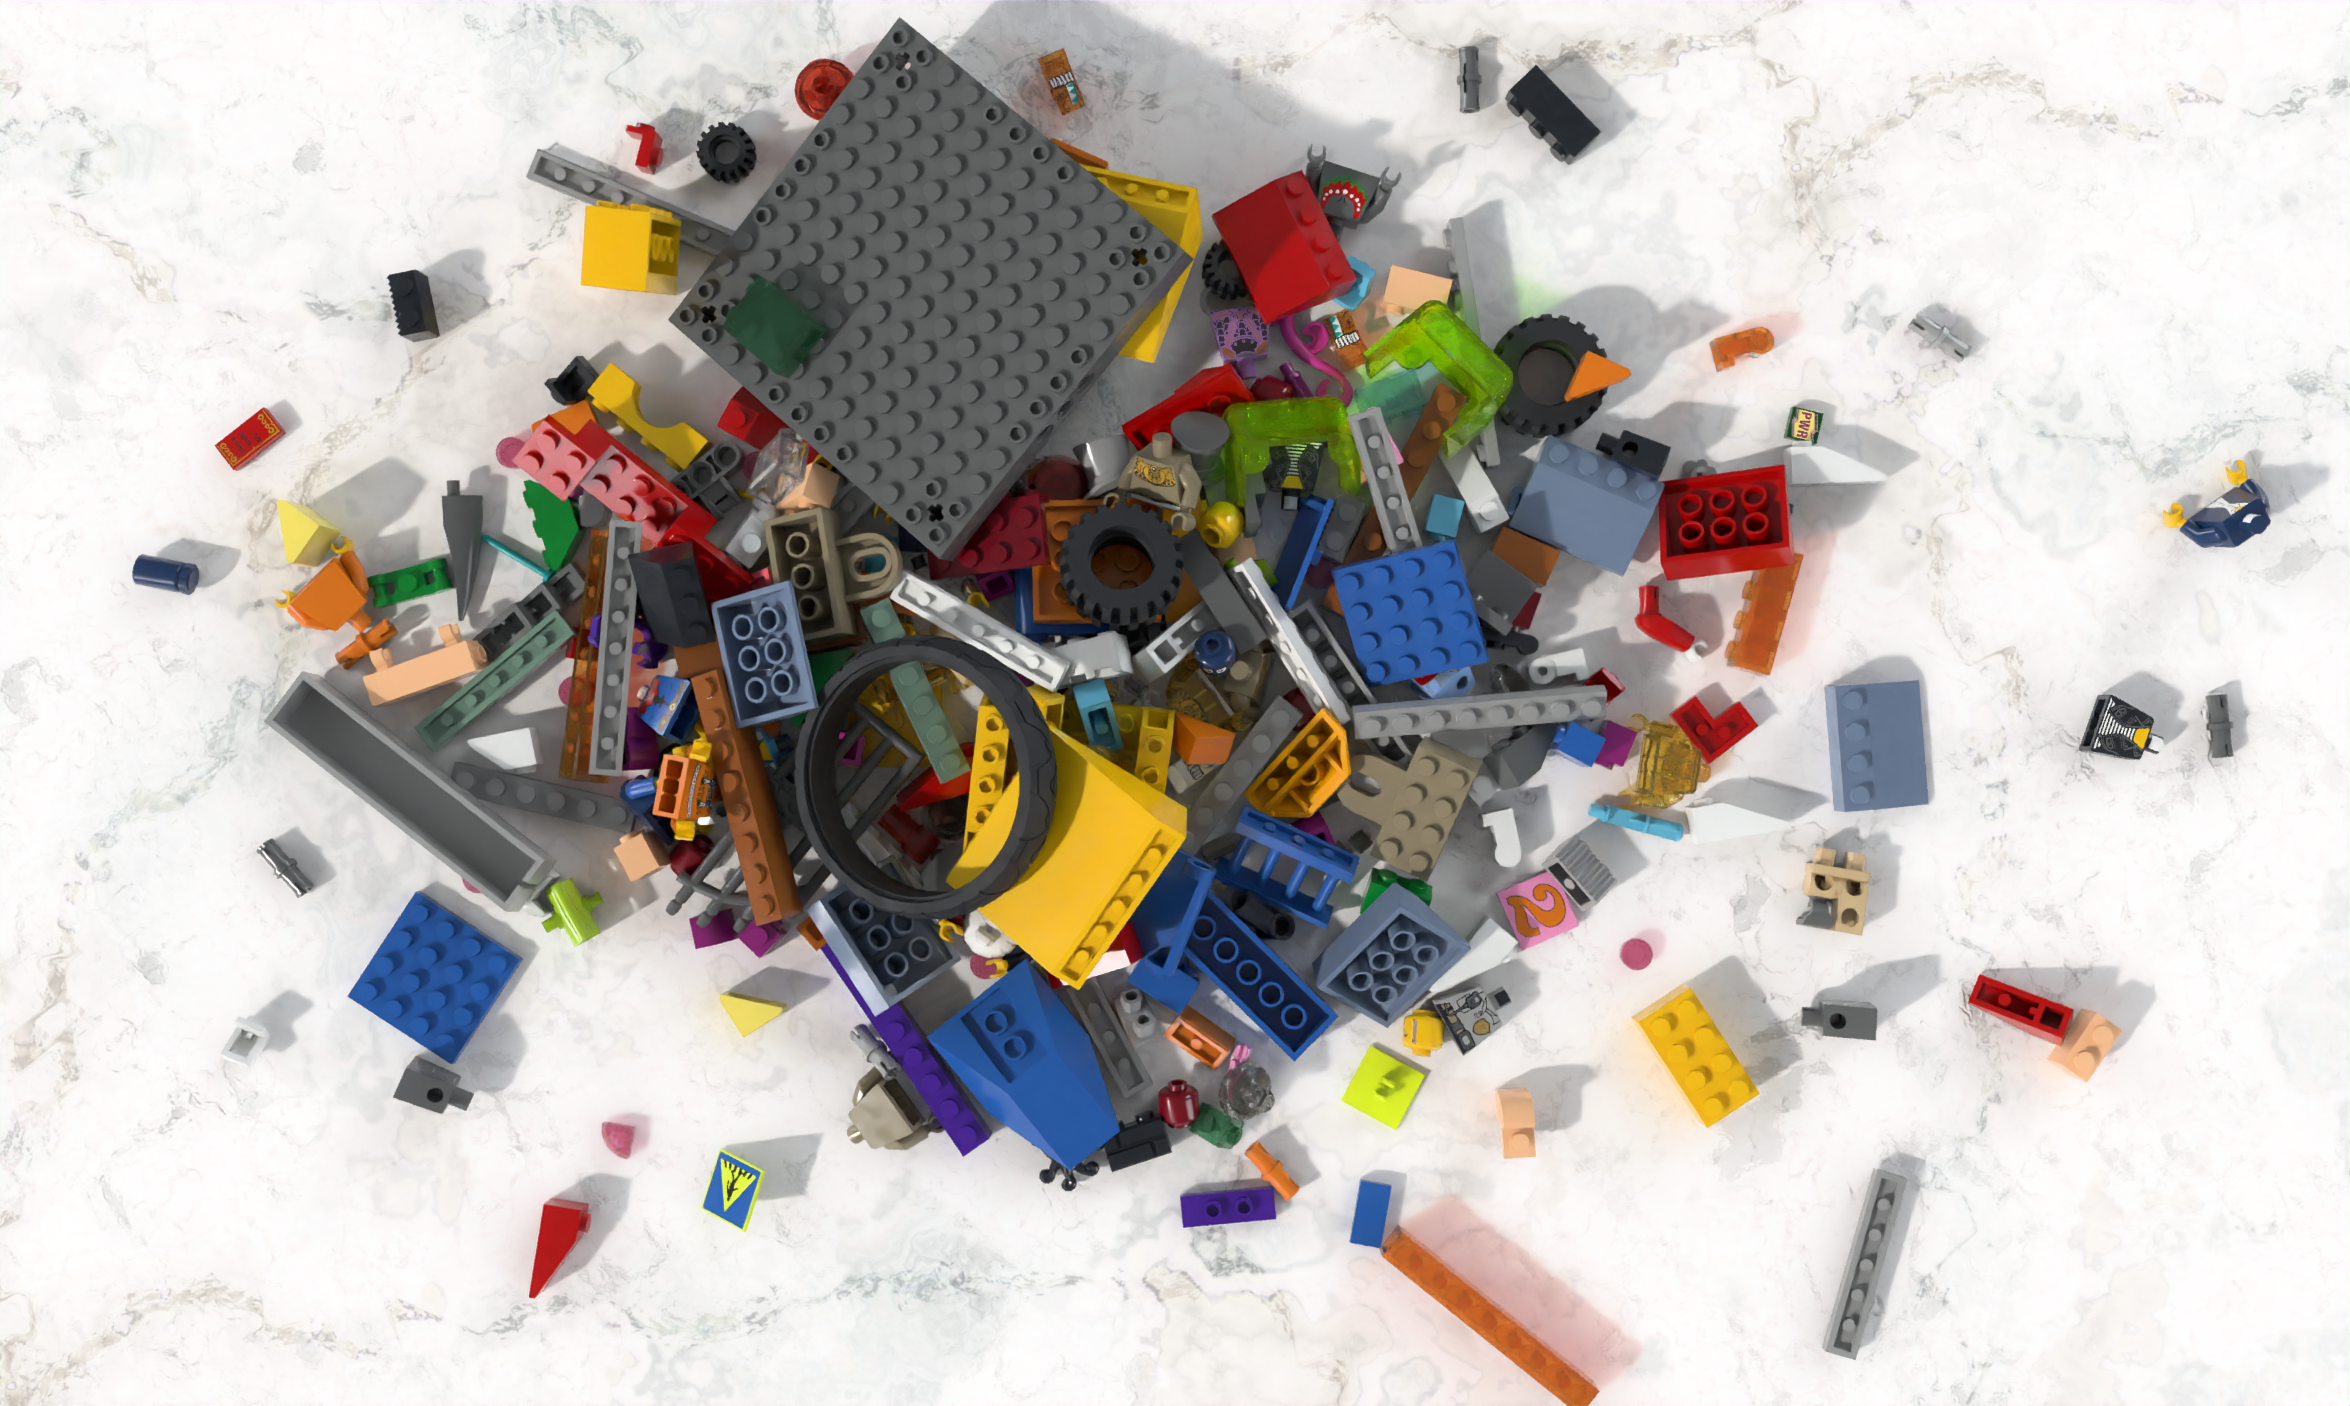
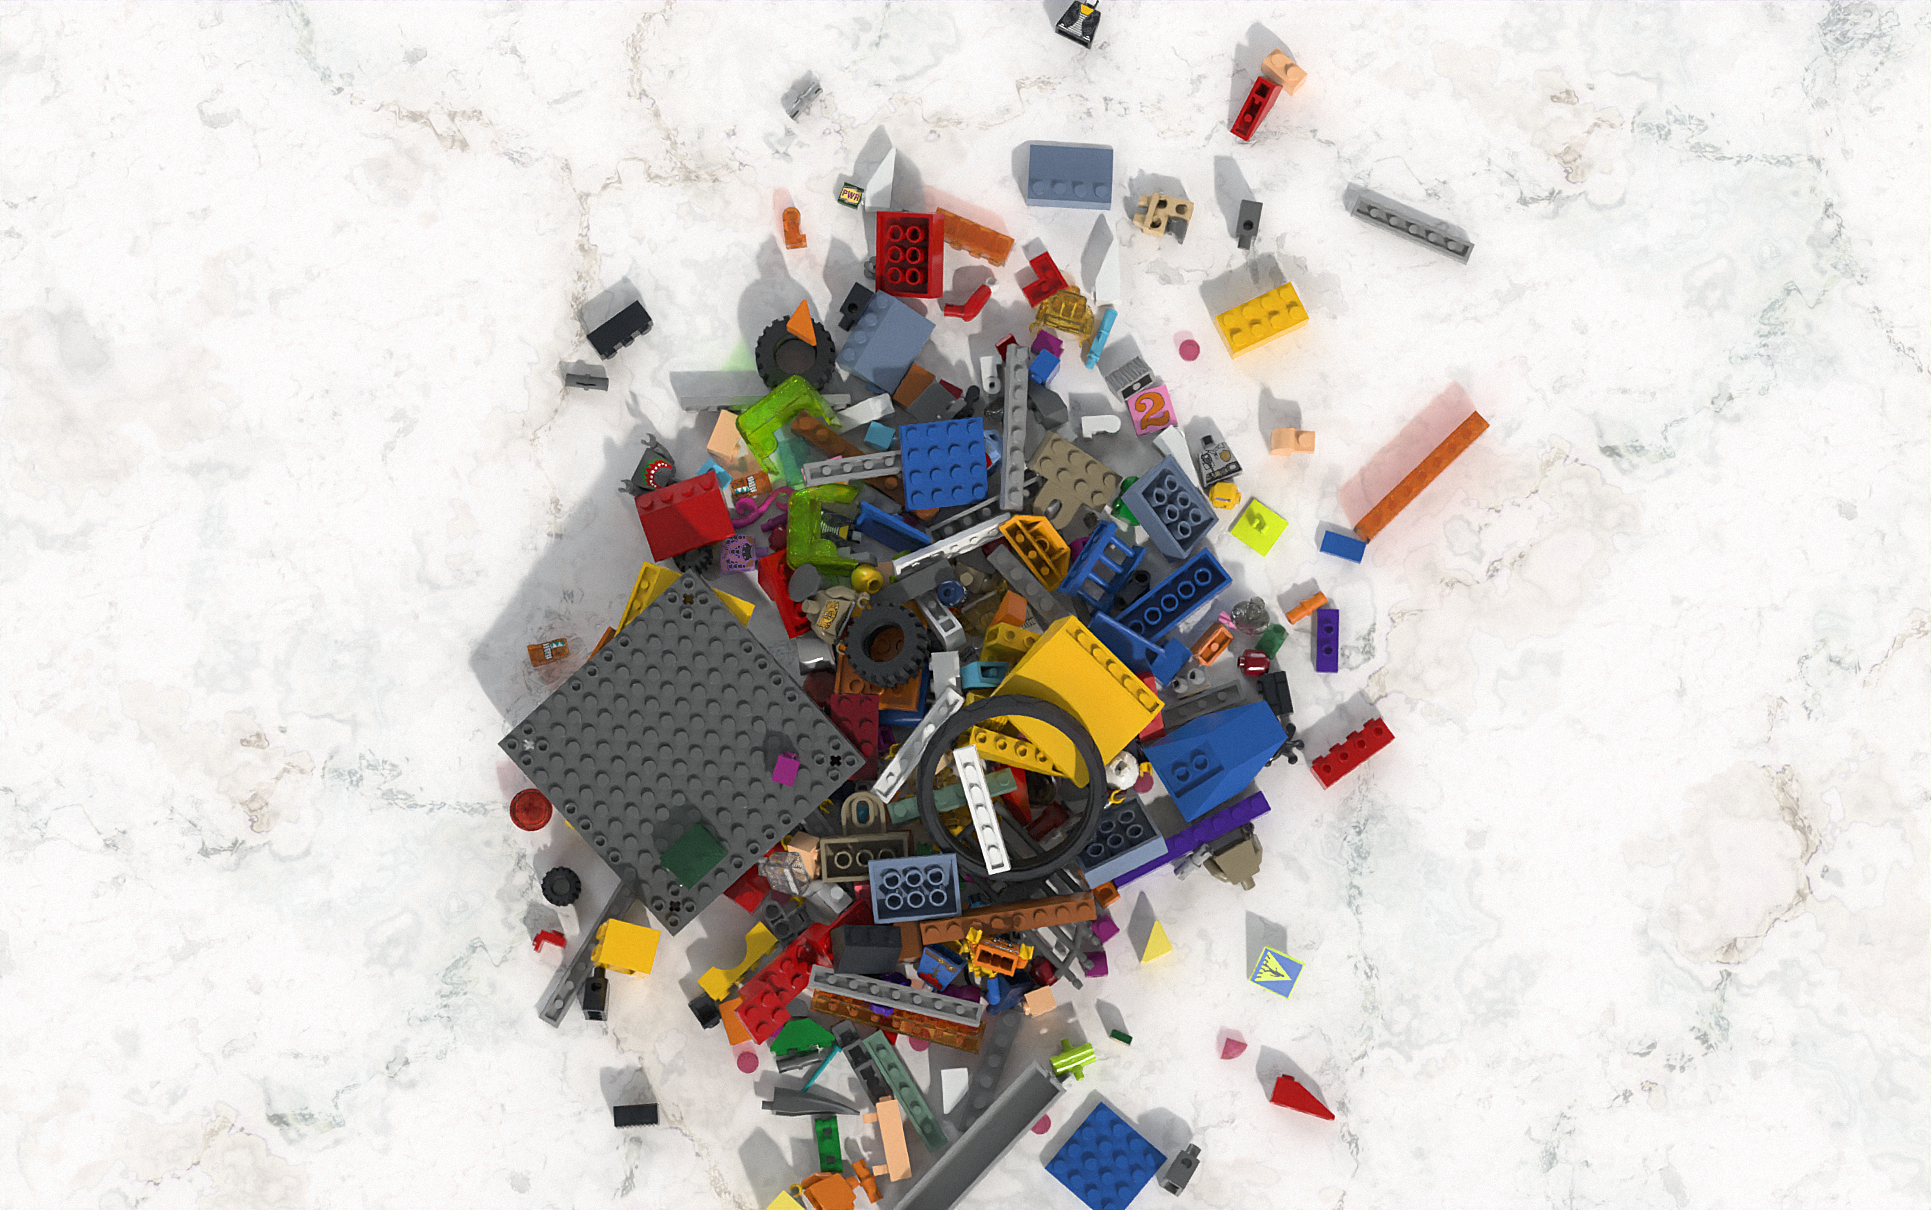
camera: 85 degrees left, 10 degrees down
(521, 524) = (798, 1061): none -> dark grey pin
(560, 223) = (596, 1003): none -> black torso
(612, 977) = (1121, 1037): none -> dark green tile
(880, 737) = (982, 809): none -> white plate
(909, 441) = (786, 768): none -> magenta brick
(1065, 1262) = (1352, 753): none -> red brick

